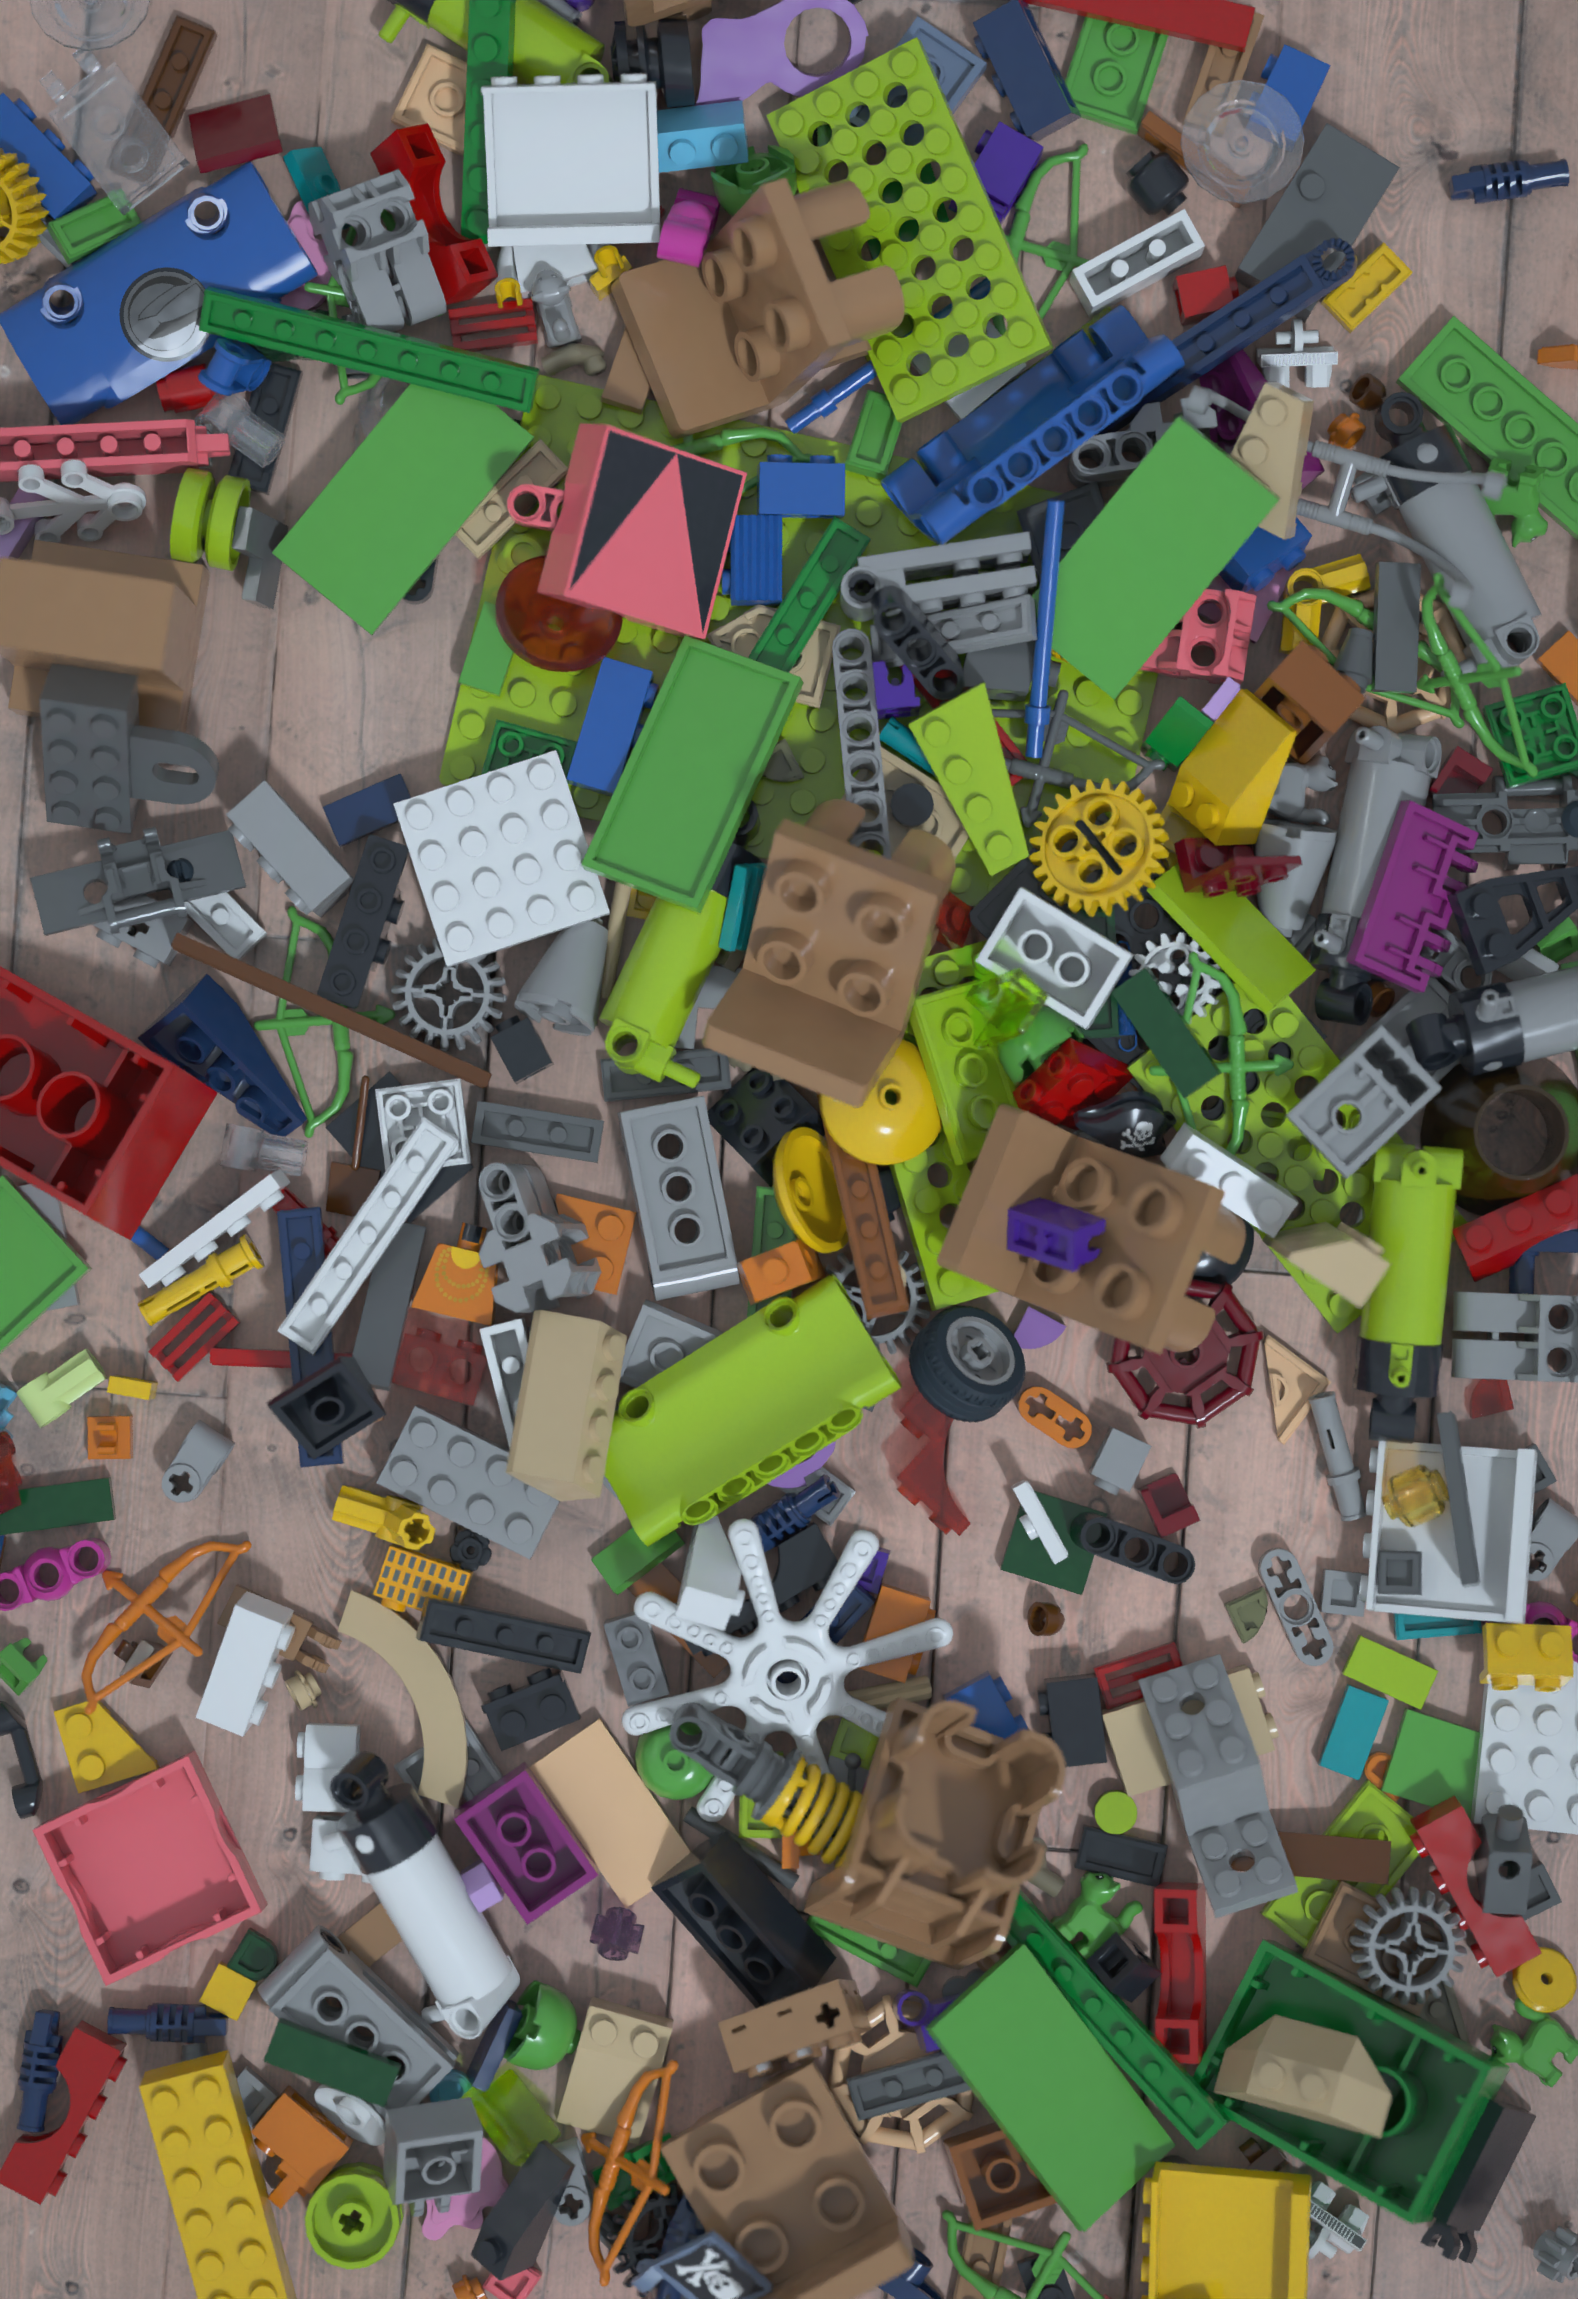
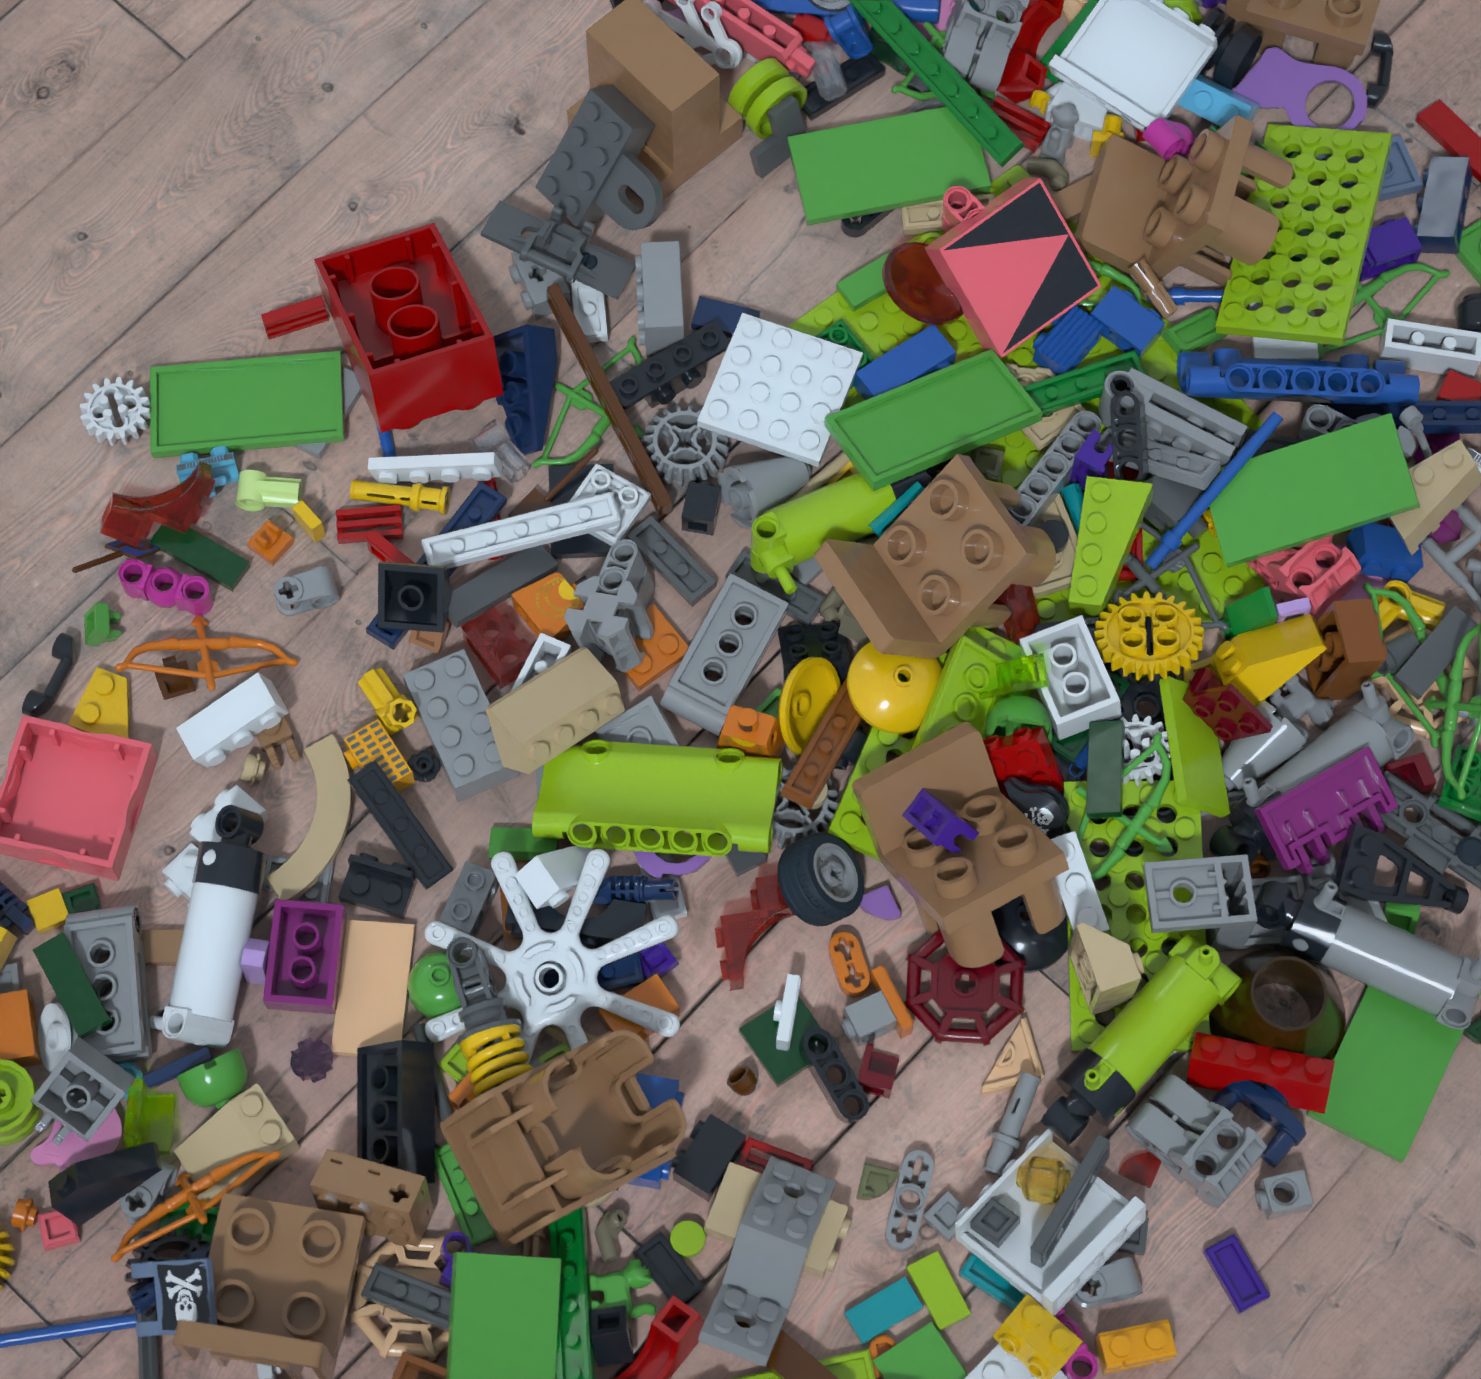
camera: 35 degrees right, 20 degrees down
(795, 421) = (1153, 288): none -> medium nougat axle
(1128, 1424) = (881, 981): none -> orange tile

